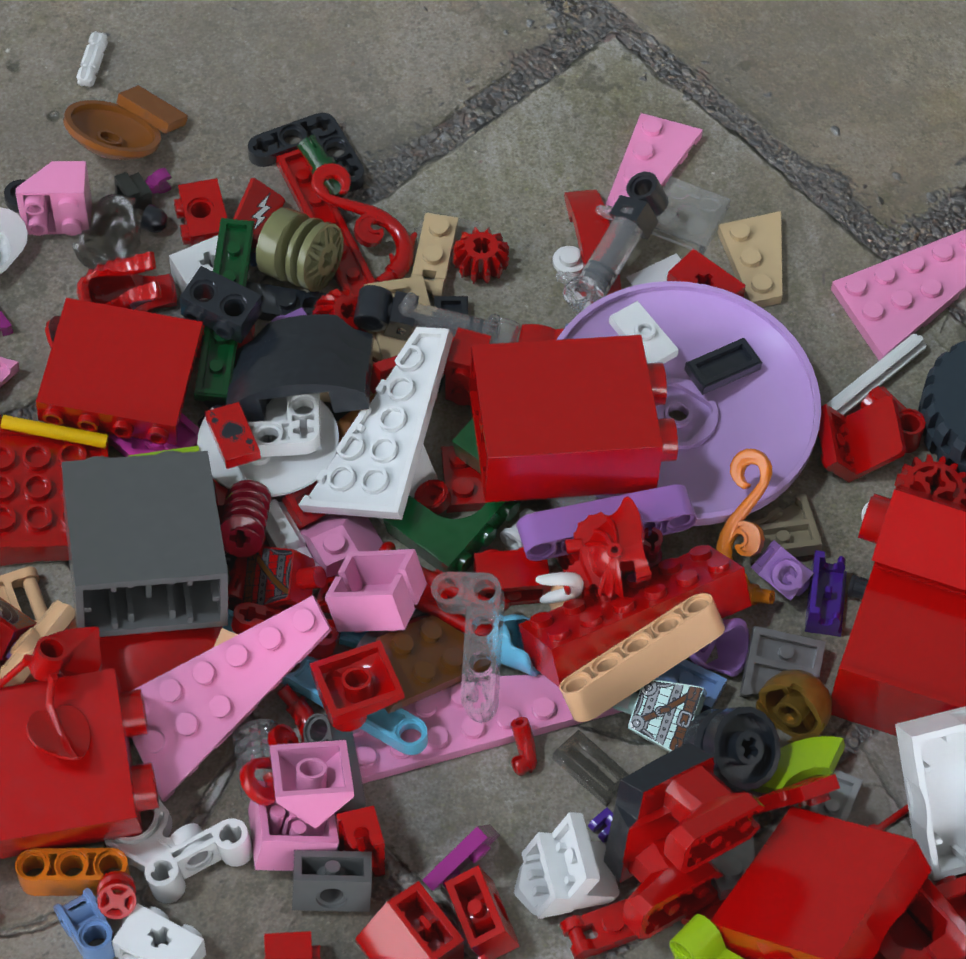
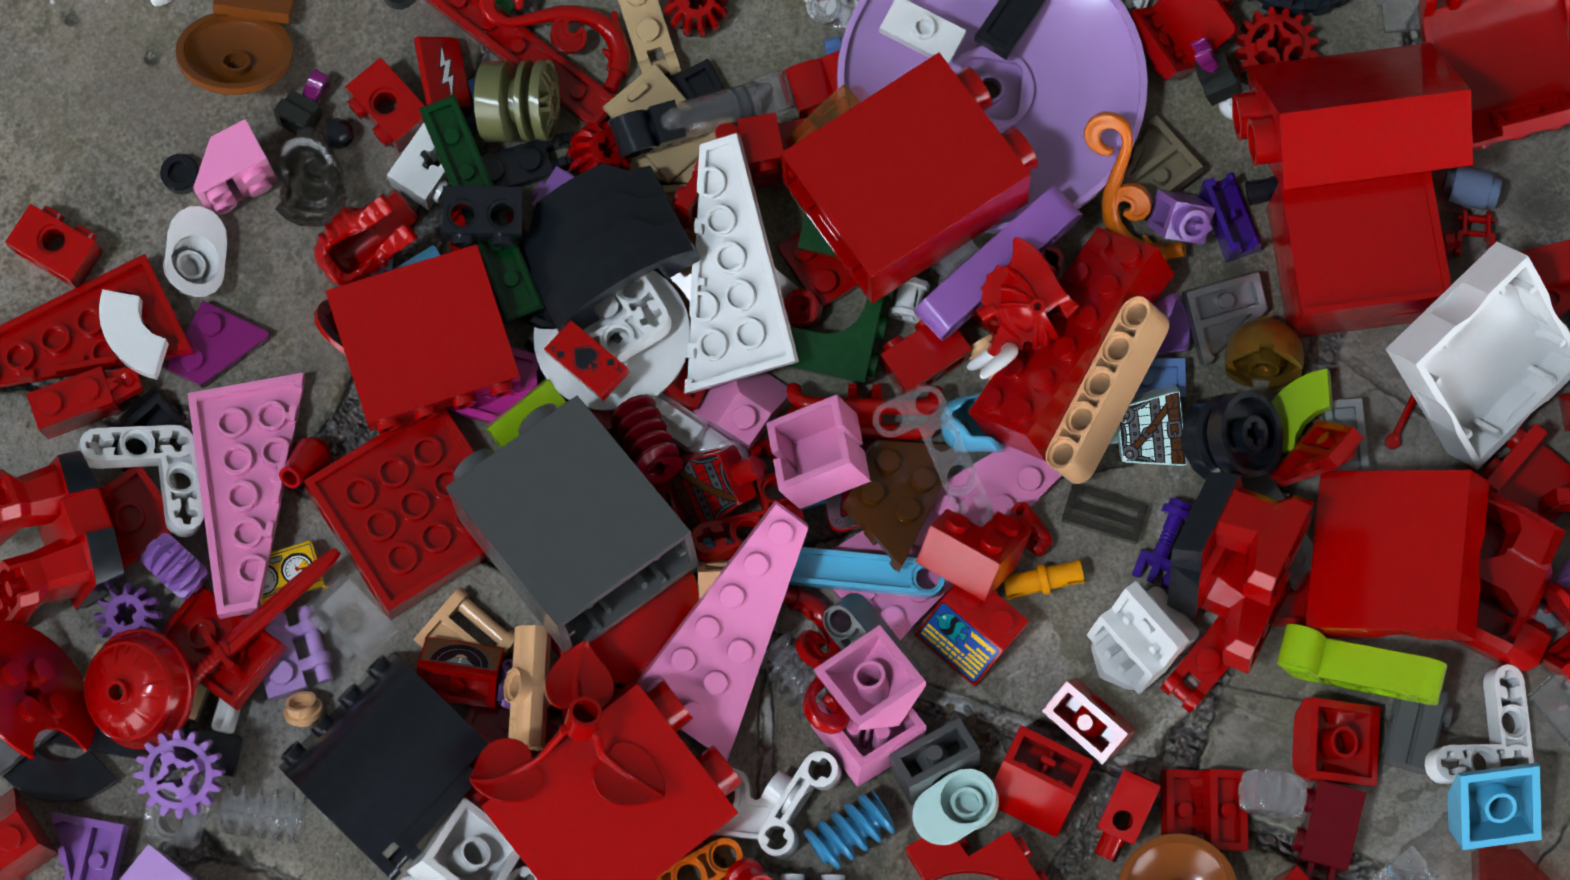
camera: 25 degrees left, 20 degrees up
(54, 431) = (396, 437): yellow bar -> none
(228, 902) = (850, 830): none -> dark azure piece
(327, 921) = (955, 807): none -> light aqua cap
(356, 685) = (858, 563): red slope -> none
(361, 832) = (943, 705): red hinge -> none
(427, 797) = (971, 632): none -> slope
(458, 728) = (971, 554): none -> red brick
(470, 849) = (1039, 671): magenta wing -> none
(509, 790) = (1043, 579): none -> light orange pin
(869, 477) = (1216, 72): none -> pearl dark grey piece

